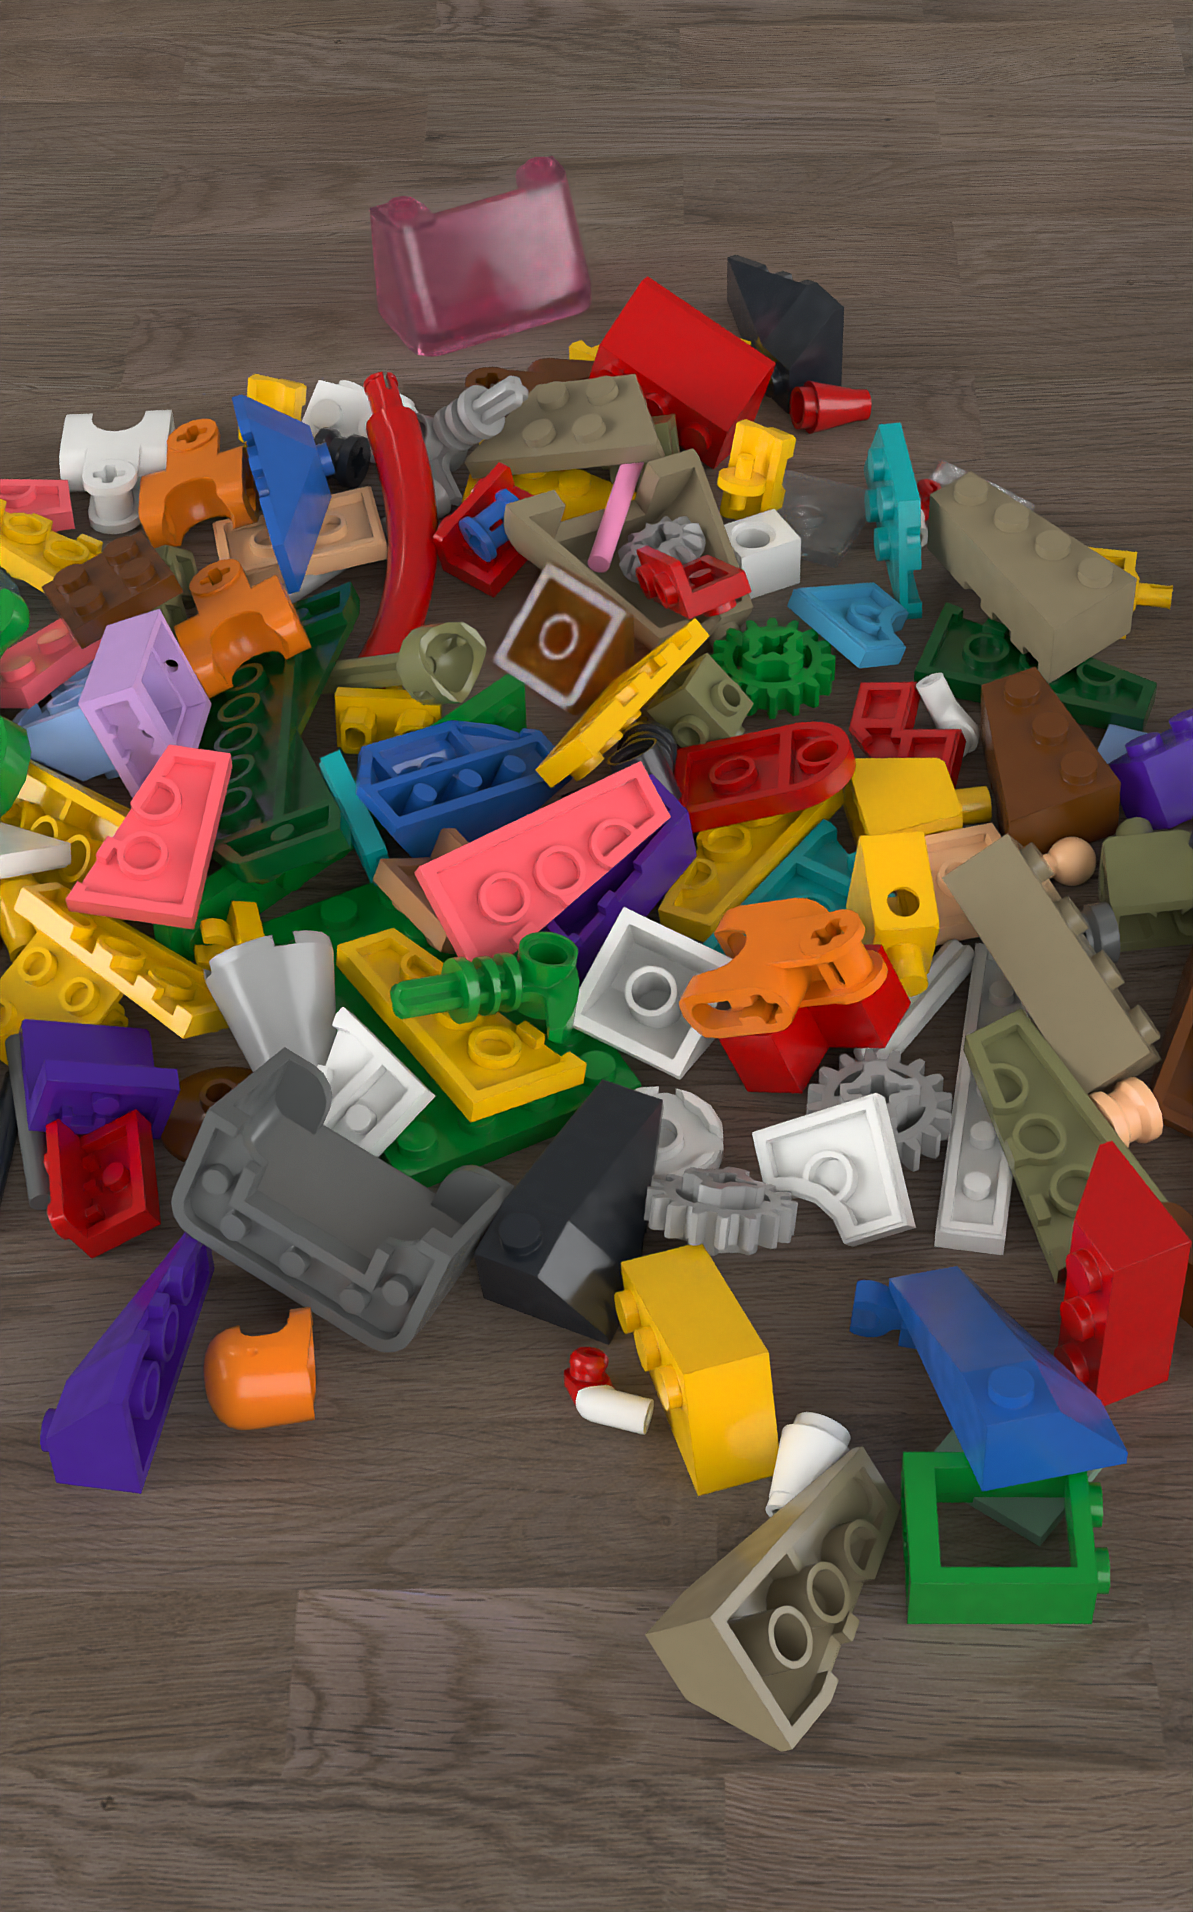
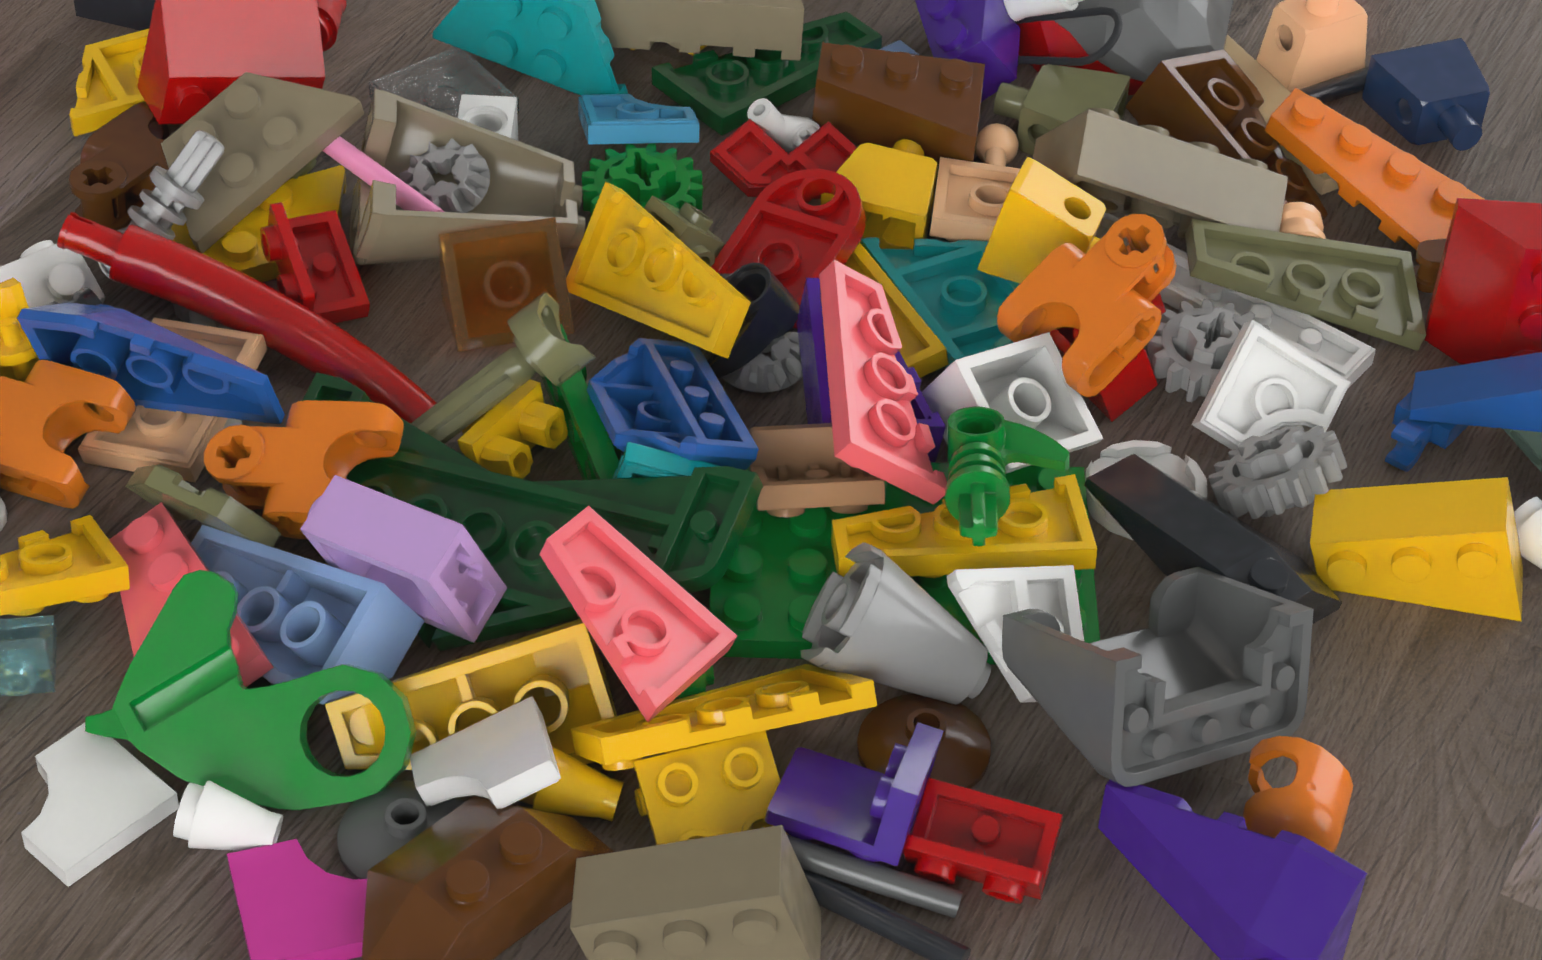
camera: 65 degrees left, 0 degrees up
(111, 587) = (190, 522): reddish brown plate -> none
(240, 927) = (753, 647): yellow tile -> none
(477, 531) = (331, 252): blue bush -> none
(597, 1398) = (1405, 632): white arm -> none
(693, 588) = (538, 171): red bracket -> none
(755, 470) = (425, 68): yellow hips -> none

